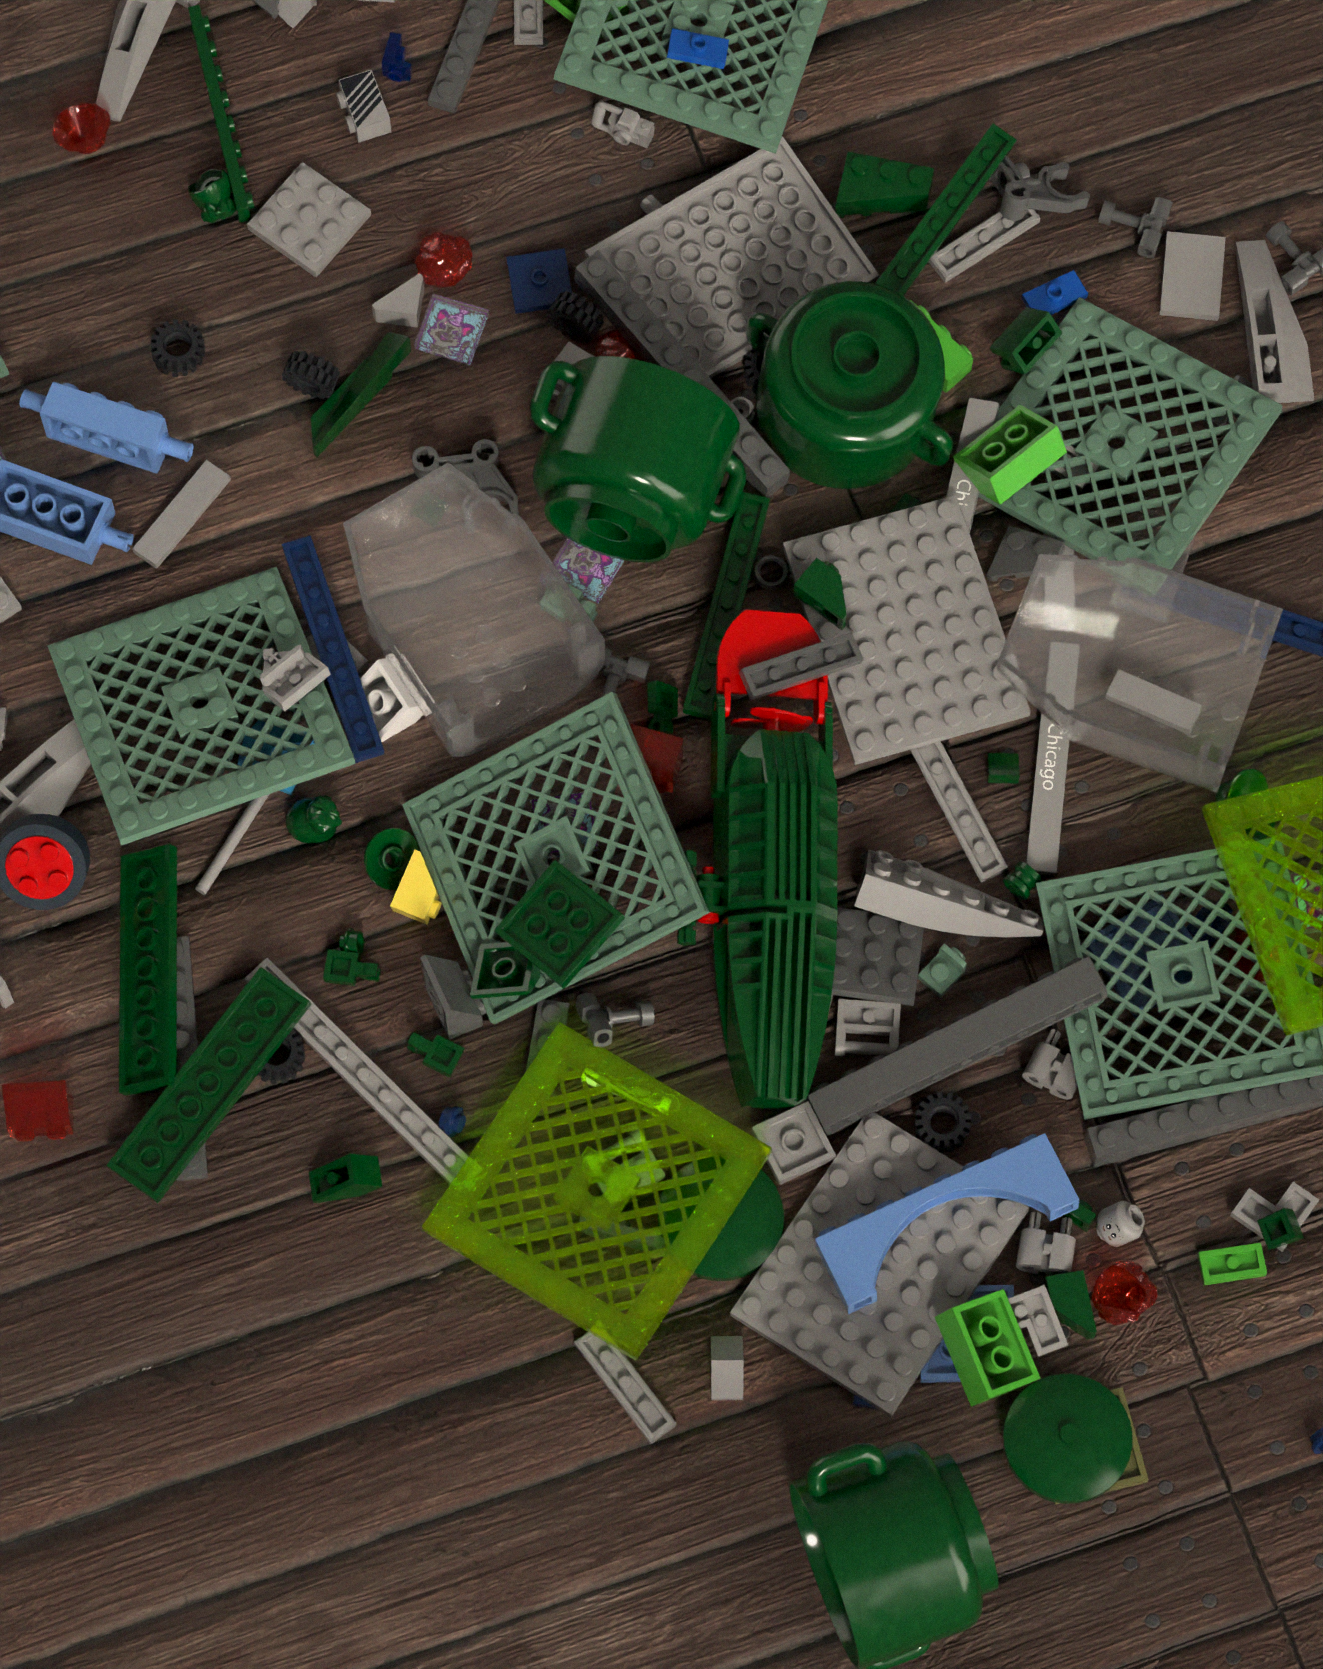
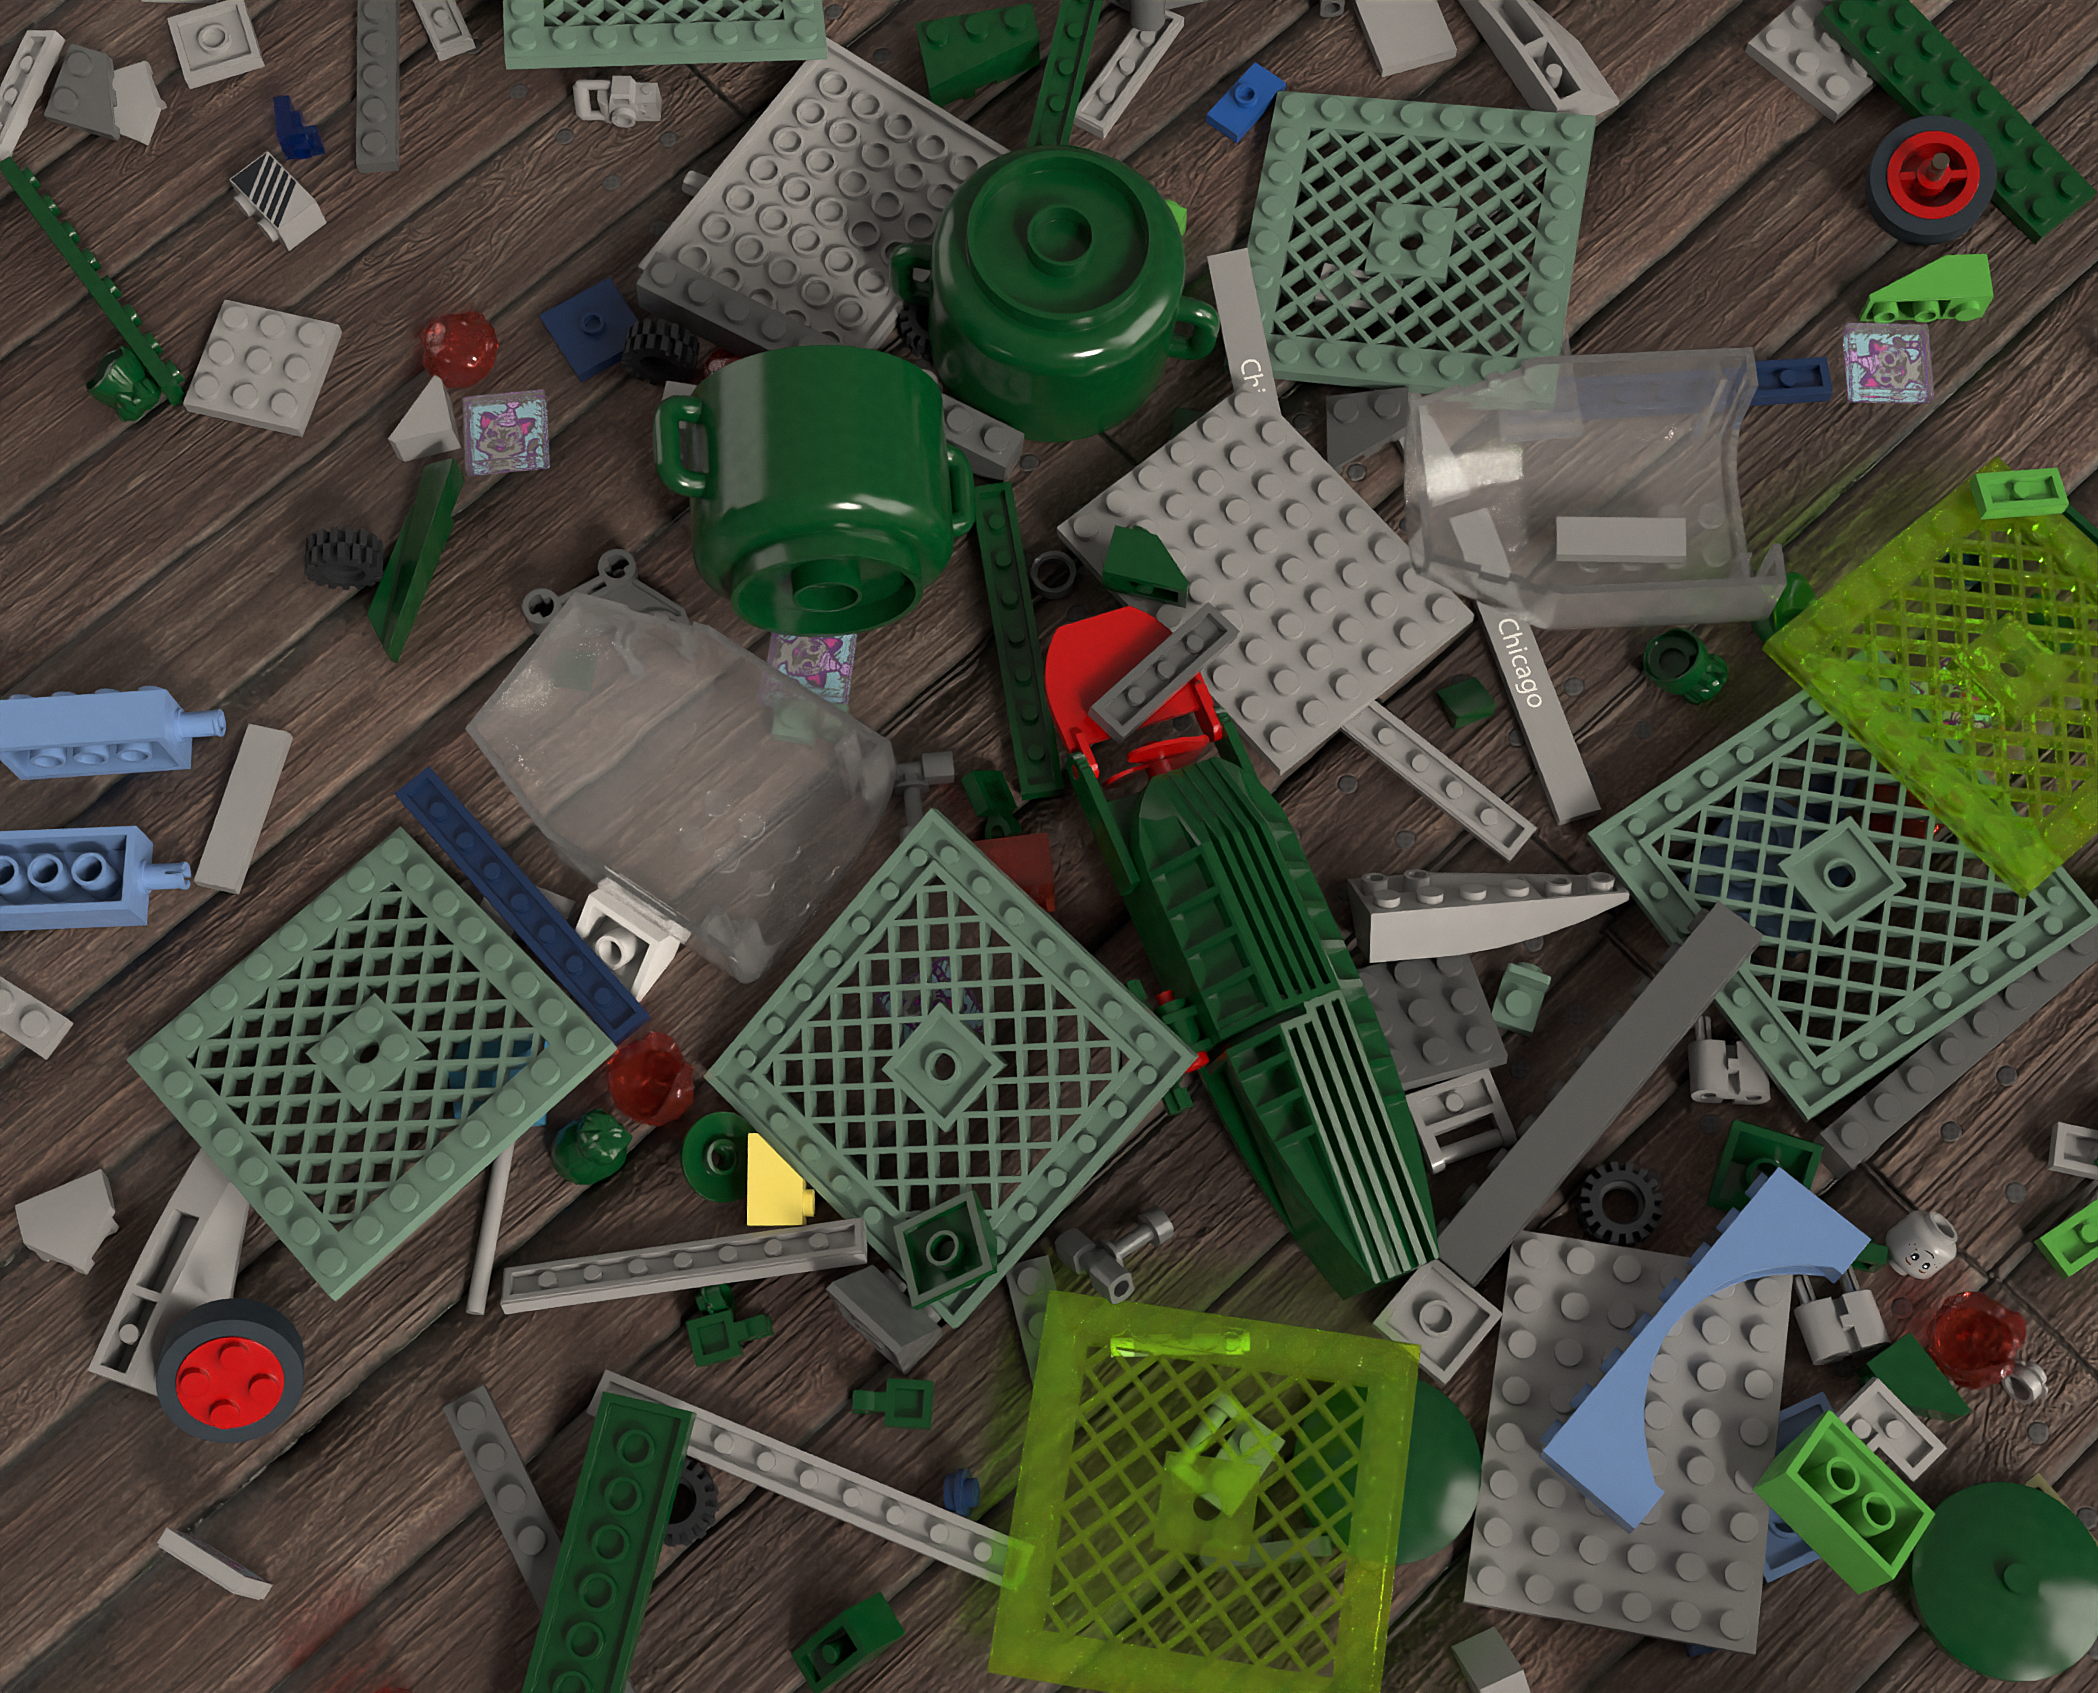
camera: 20 degrees left, 0 degrees up
(148, 970) = (446, 1463): dark green plate -> none
(177, 363) = (143, 575): black tyre -> none
(290, 675) = (478, 965): light grey slope -> none
(341, 915) = (684, 1265): none -> light grey tile
(368, 792) = (651, 1080): none -> clear red hair
(559, 924) = (996, 1157): dark green plate -> none
(1011, 453) = (1294, 302): bright green slope -> none
(1022, 880) = (1564, 837): dark green wheel -> none
(1026, 340) = (1240, 163): dark green brick -> none
(1060, 1132) = (1758, 1150): none -> dark green slope
(1145, 1333) = (2025, 1382): none -> light grey plate
(1157, 802) = (1683, 666): none -> dark green hair

